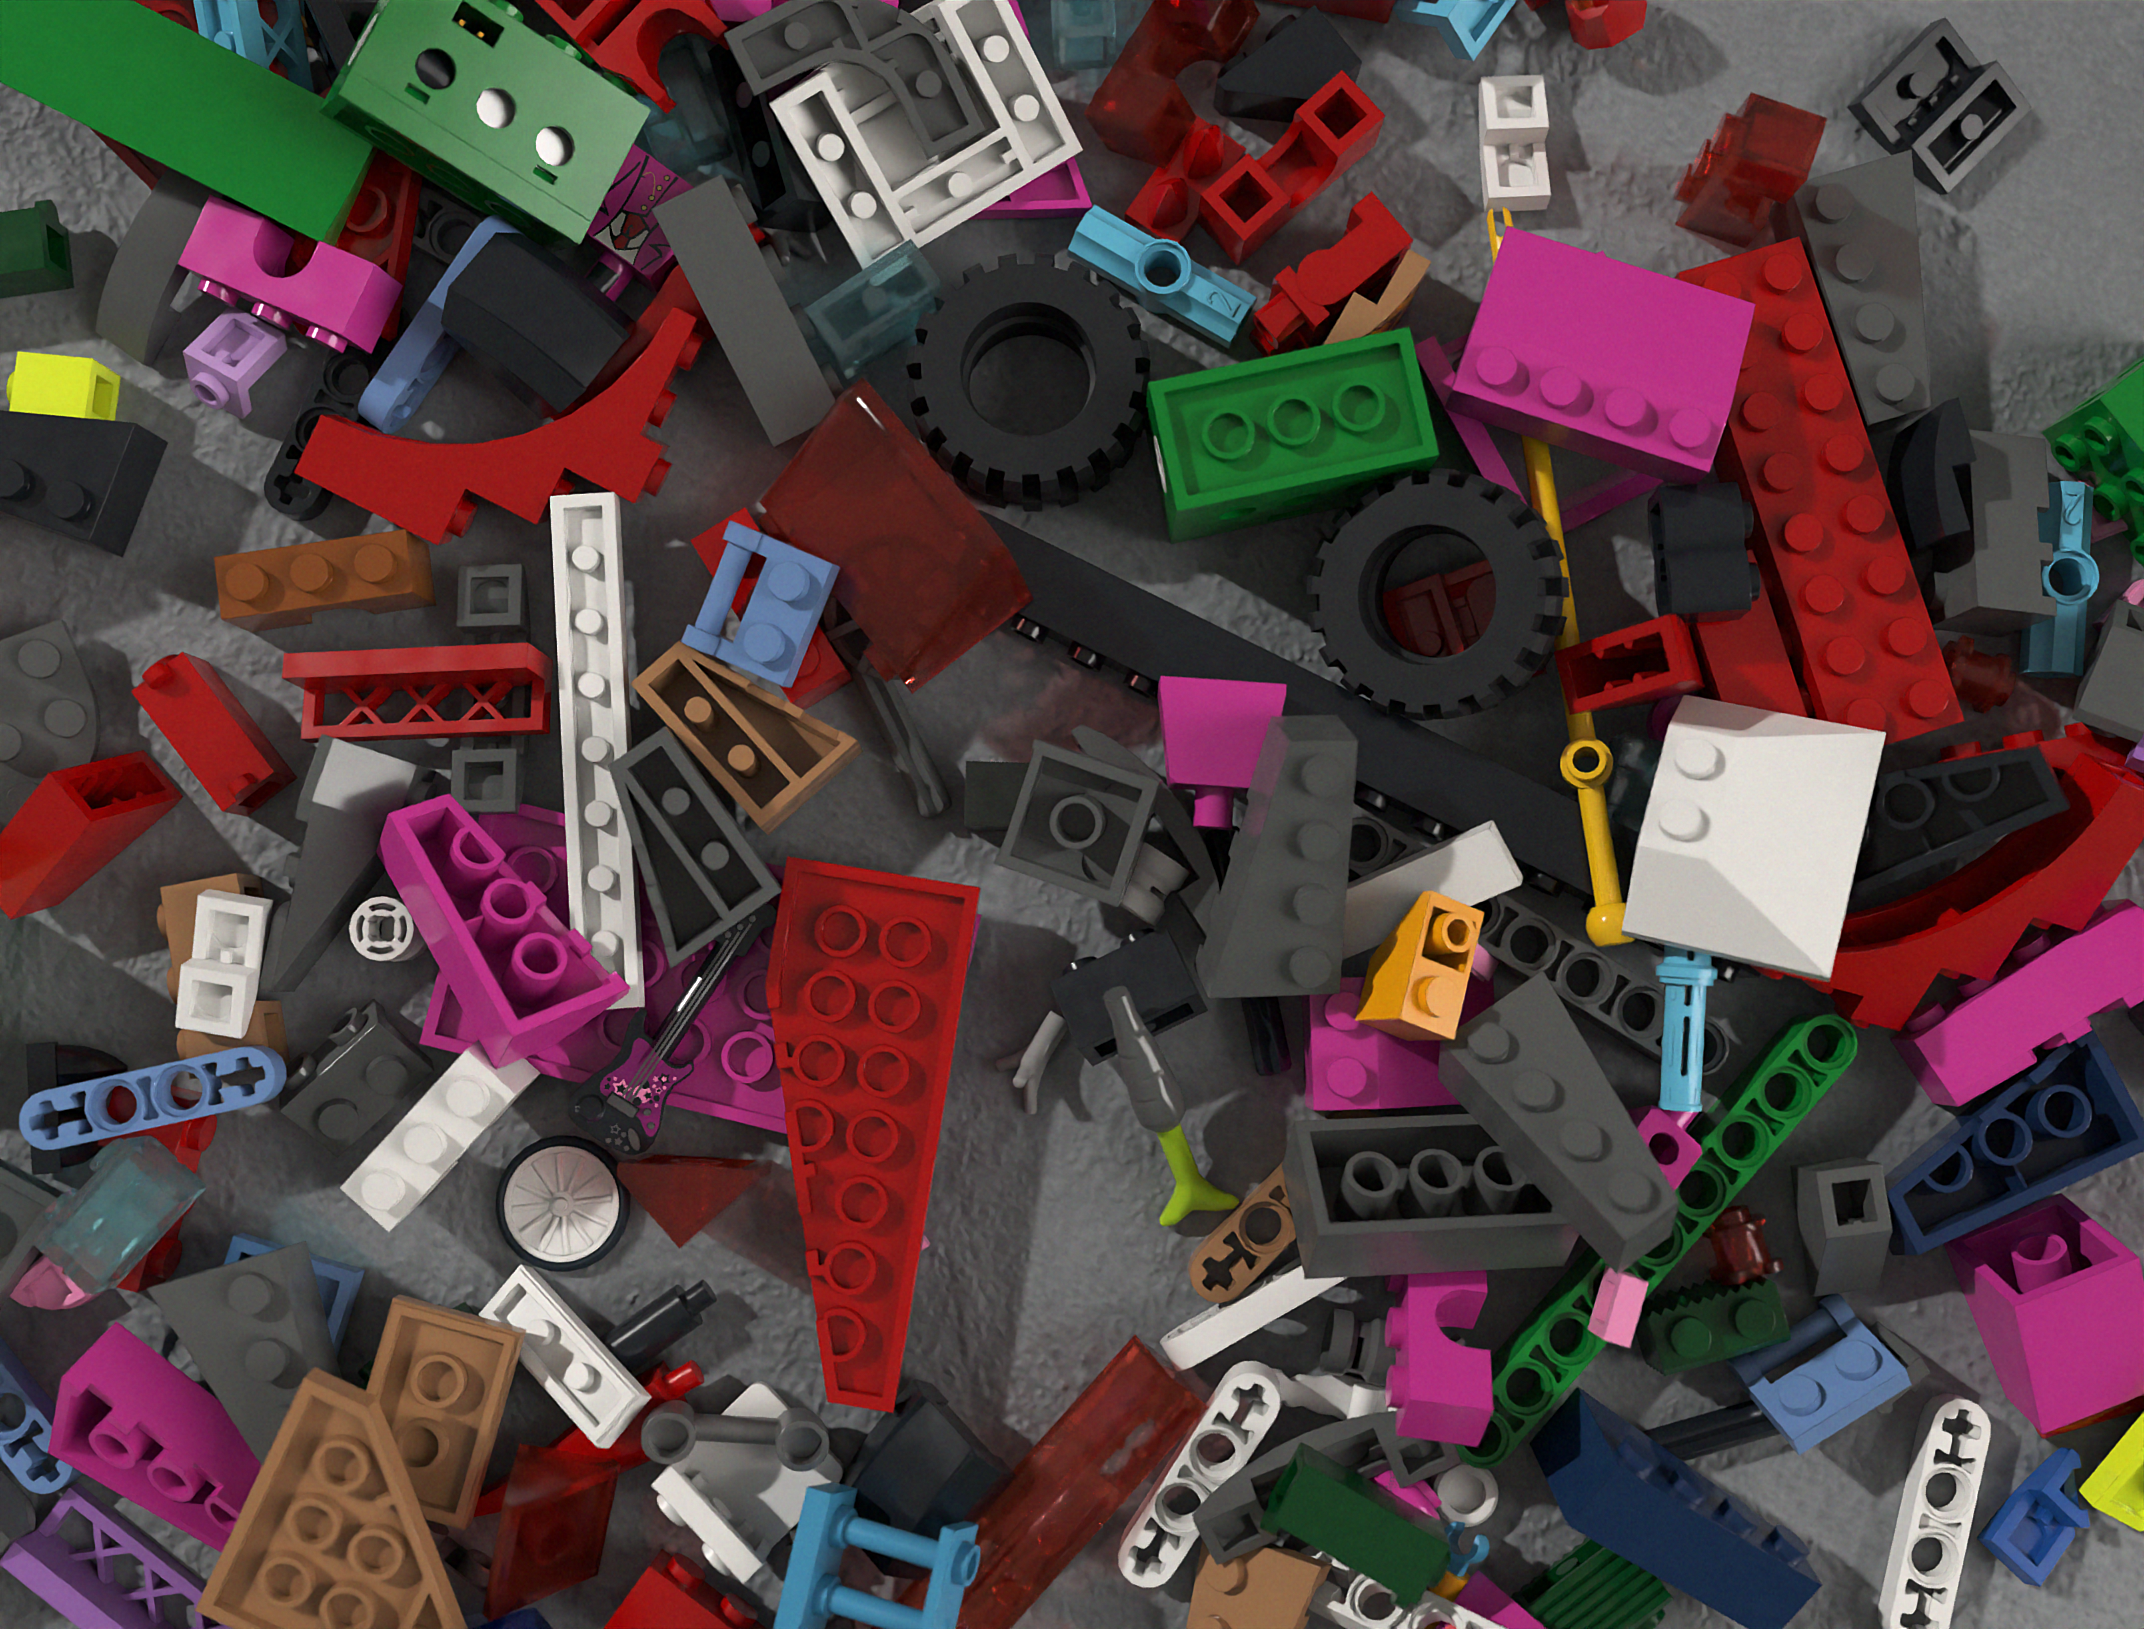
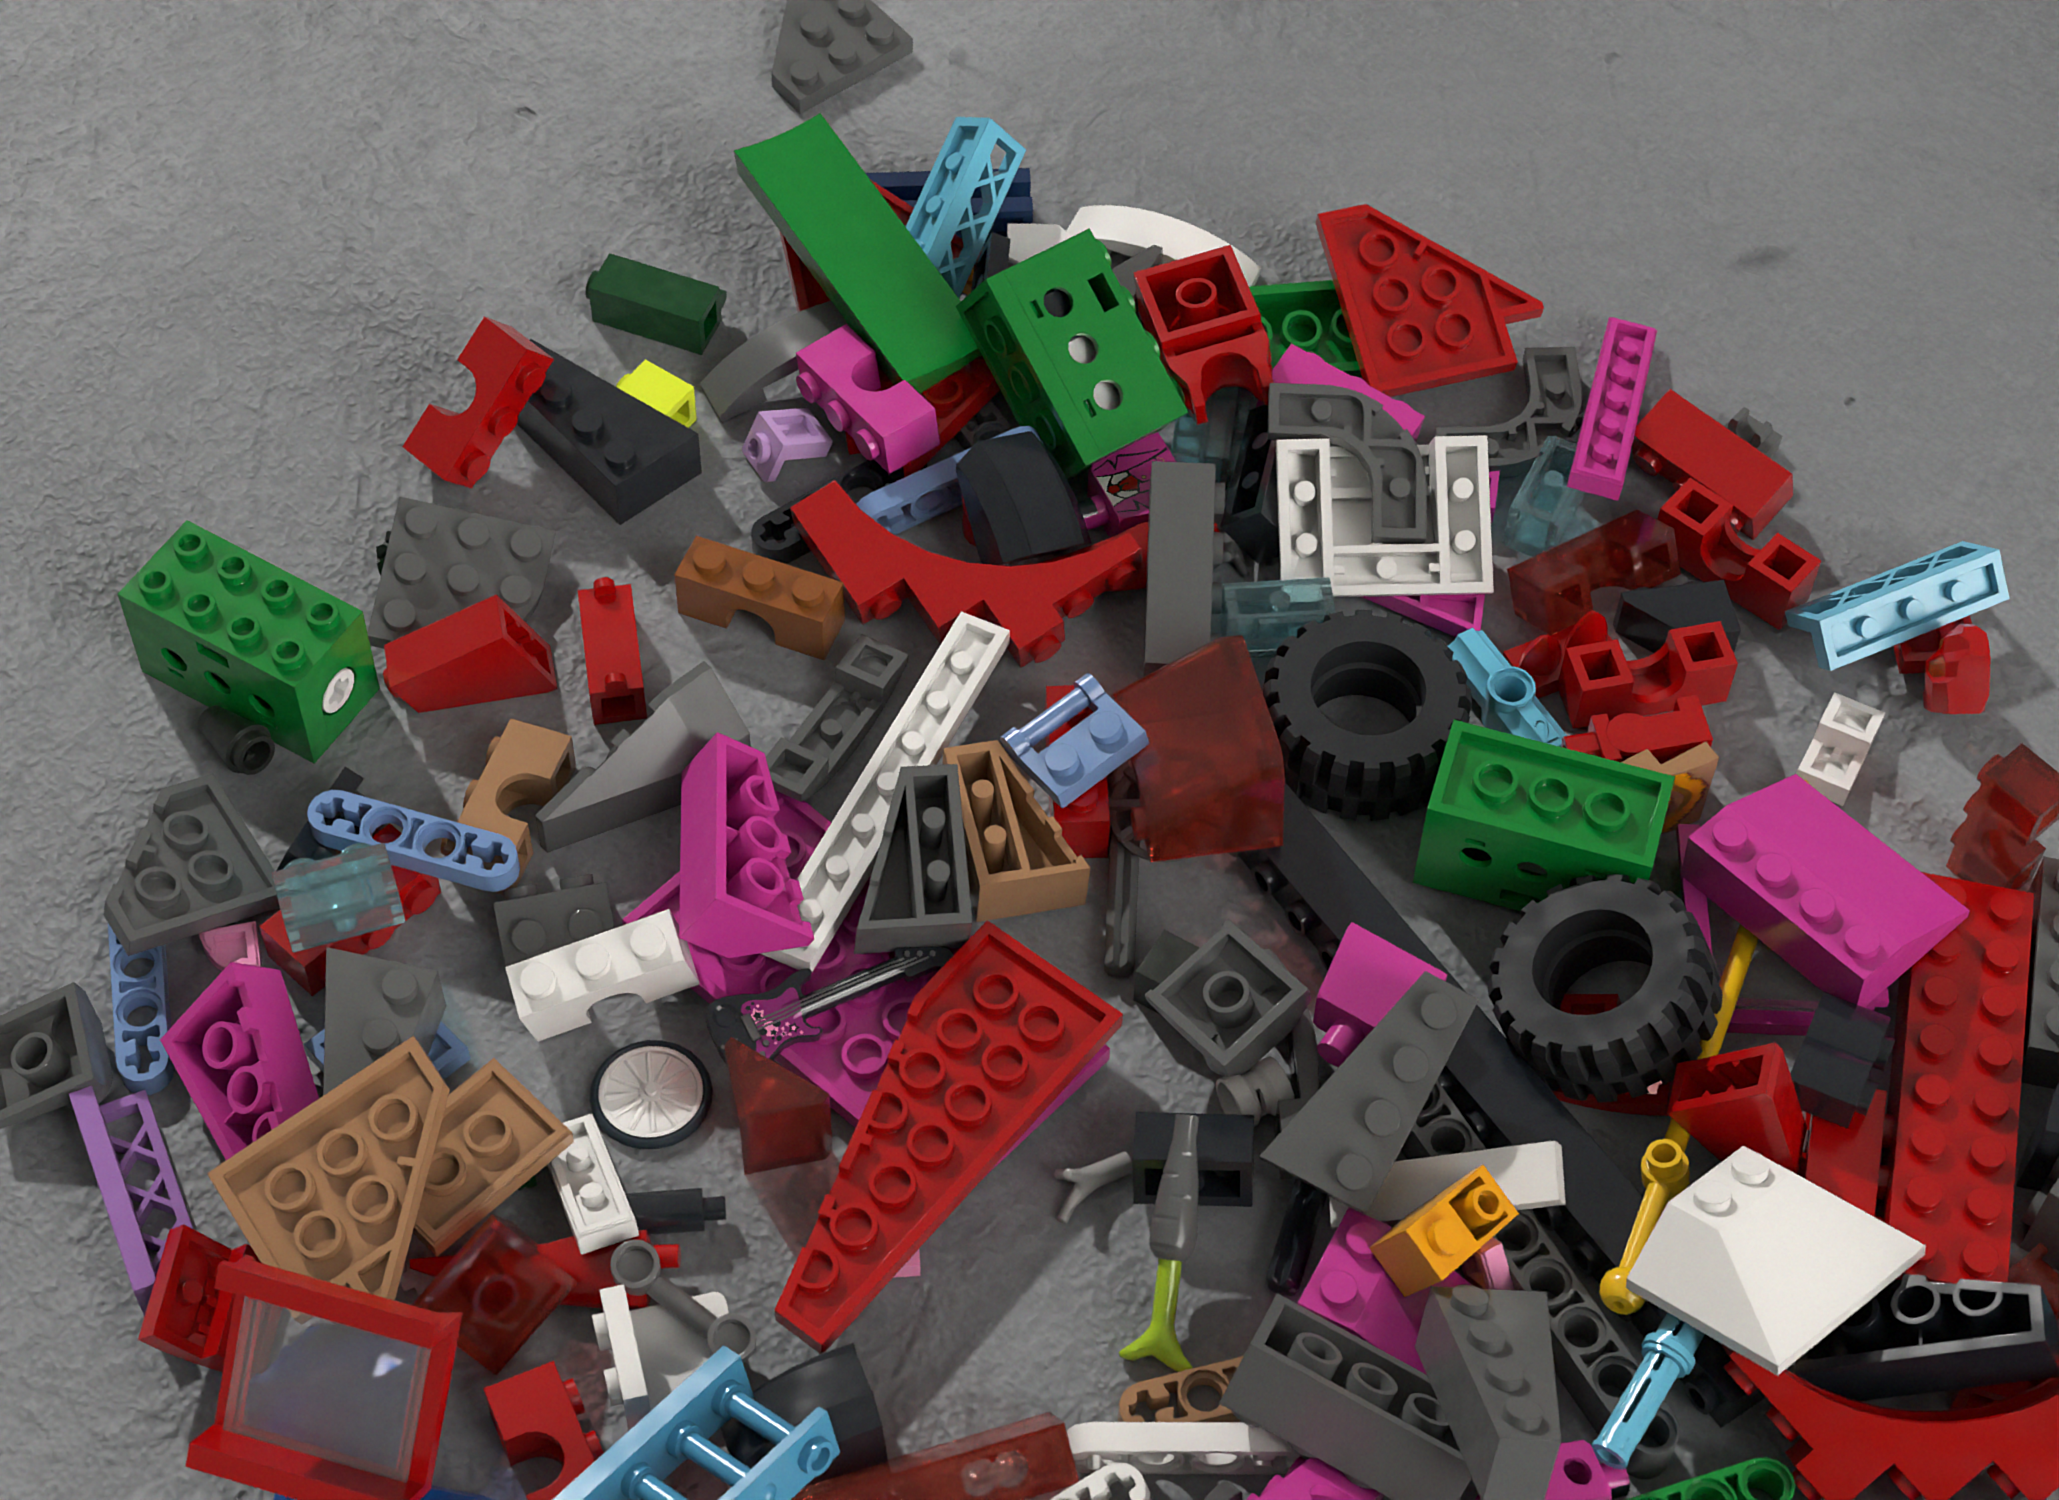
camera: 25 degrees right, 30 degrees down
(225, 965) = (519, 790): white slope -> none
(399, 936) = (652, 837): white wheel -> none
(422, 669) = (794, 686): red fence -> none

